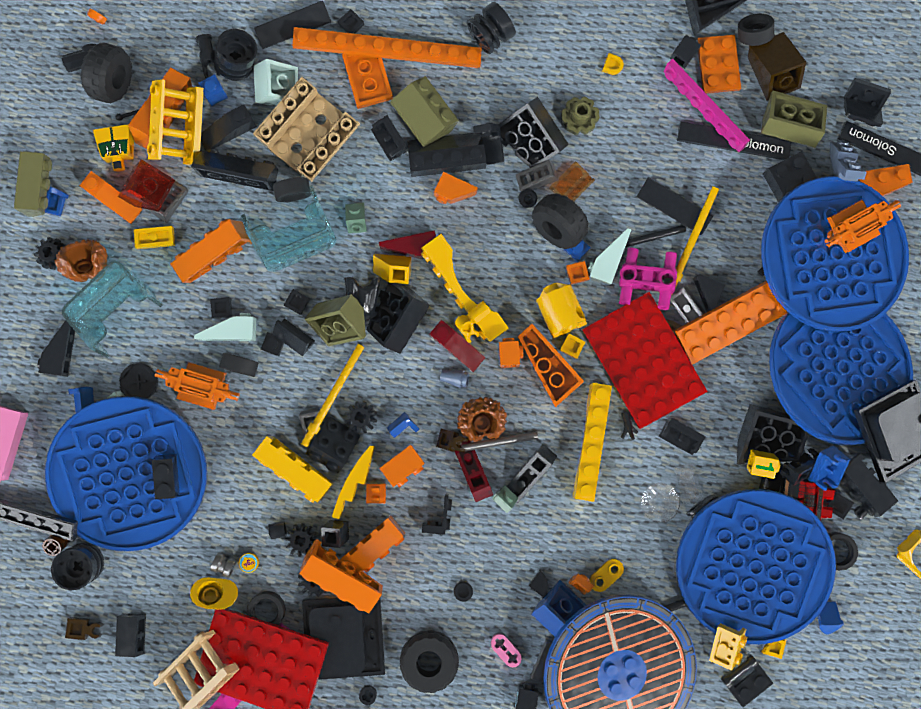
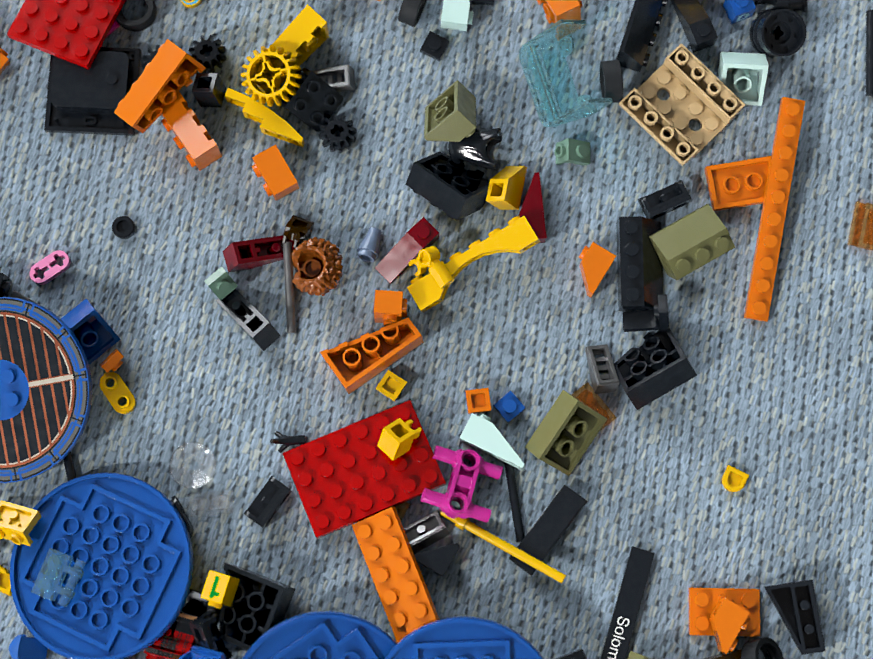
camera: 95 degrees right, 5 degrees down
(277, 530) = (222, 29): black hose -> none
(283, 27) = (816, 112): black slope -> none
(292, 336) = (440, 67): black panel -> none
(296, 302) = (480, 76): black plate -> none
(314, 428) = (330, 77): yellow bar -> none
(327, 477) = (274, 84): none -> yellow gear
(351, 22) = (810, 171): black plate -> none
(363, 691) = (30, 114): black bush -> none
(376, 493) = (248, 142): orange tile -> none
(400, 424) = (325, 178): blue tile -> none
(424, 680) = (39, 161): black tyre -> none
(432, 526) = (201, 200): black bracket -> none
(491, 27) = (788, 331): black wheel -> none
(527, 204) = (569, 354): black plate -> none
(539, 584) = (118, 314): black tile -> none
(560, 221) = (541, 383): black tyre -> none
(560, 309) = (435, 374): yellow cylinder -> none
(580, 115) = (672, 430): olive plant -> none
(593, 440) = (274, 392): yellow arch -> none
(597, 199) = (565, 433): none -> olive slope
(621, 332) = (397, 438): none -> yellow brick
(685, 51) = (743, 570): black brick -> none
(706, 106) = (662, 588): dark pink plate -> none
(732, 57) = (726, 623): none -> orange slope
(770, 606) = (53, 574): none -> clear light blue plate

